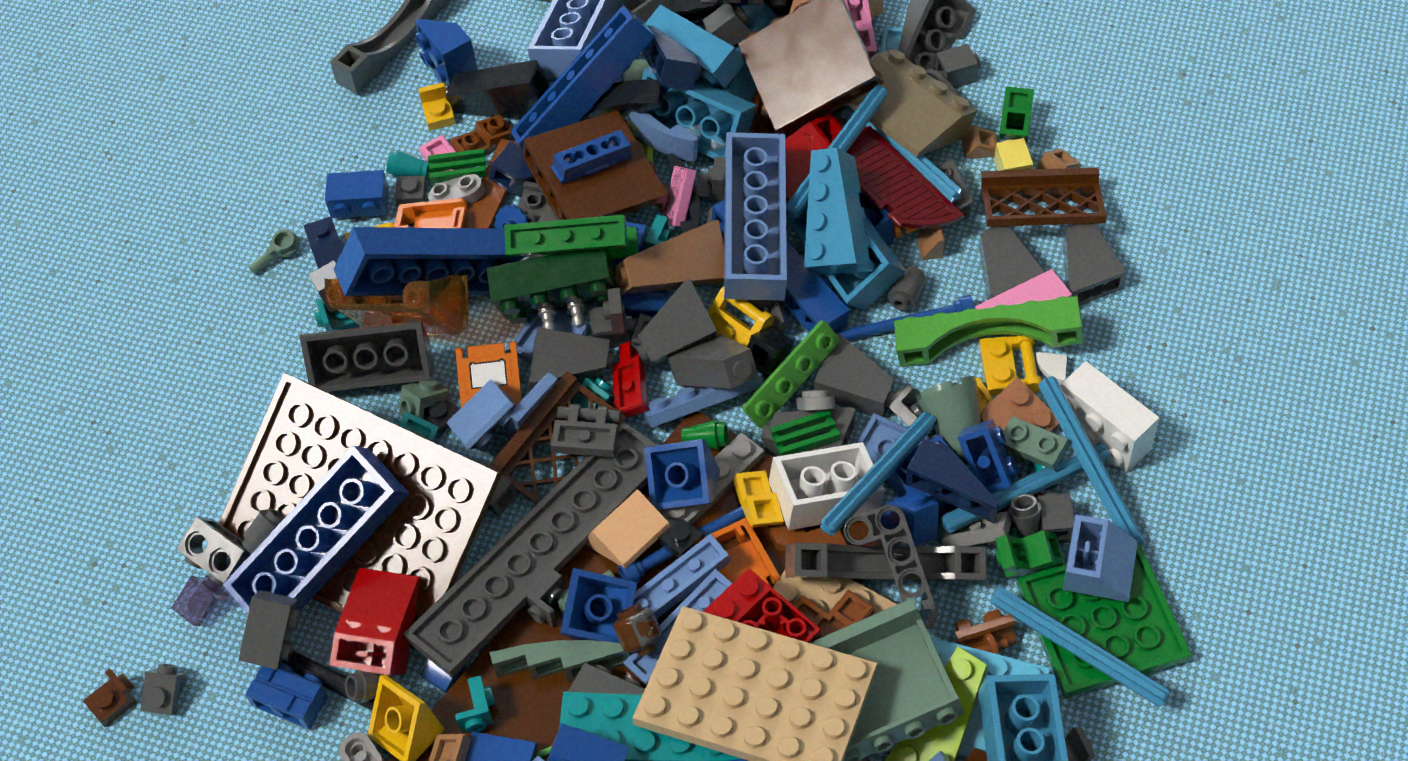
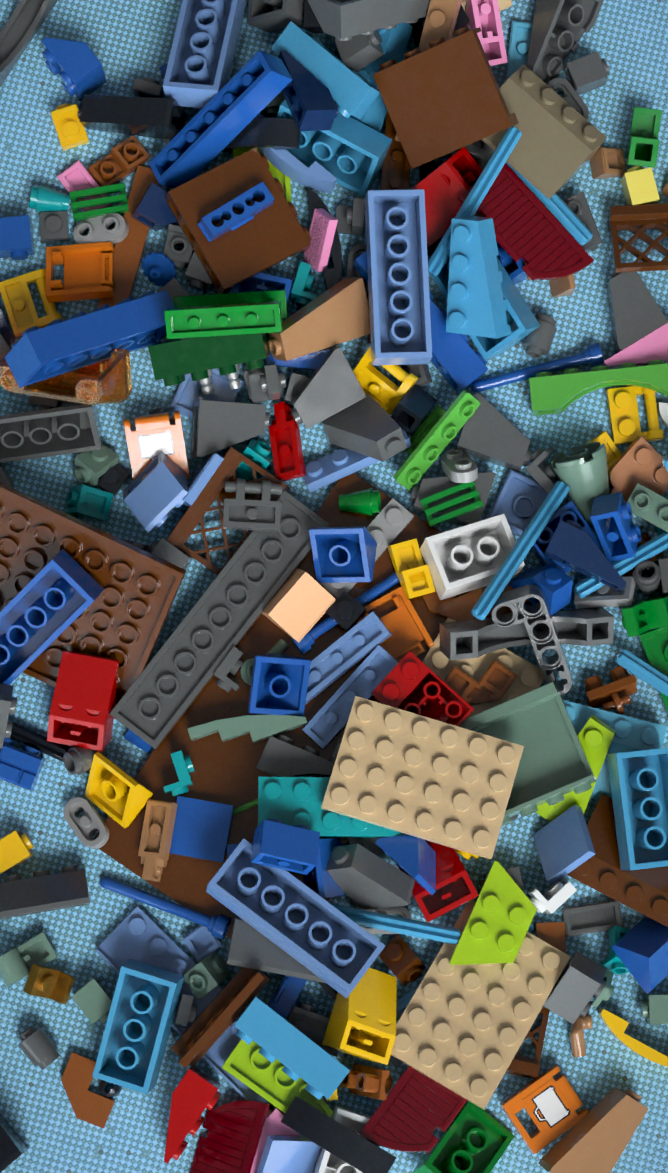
camera: 10 degrees left, 25 degrees up
(637, 629) = (315, 706): reddish brown head -> none

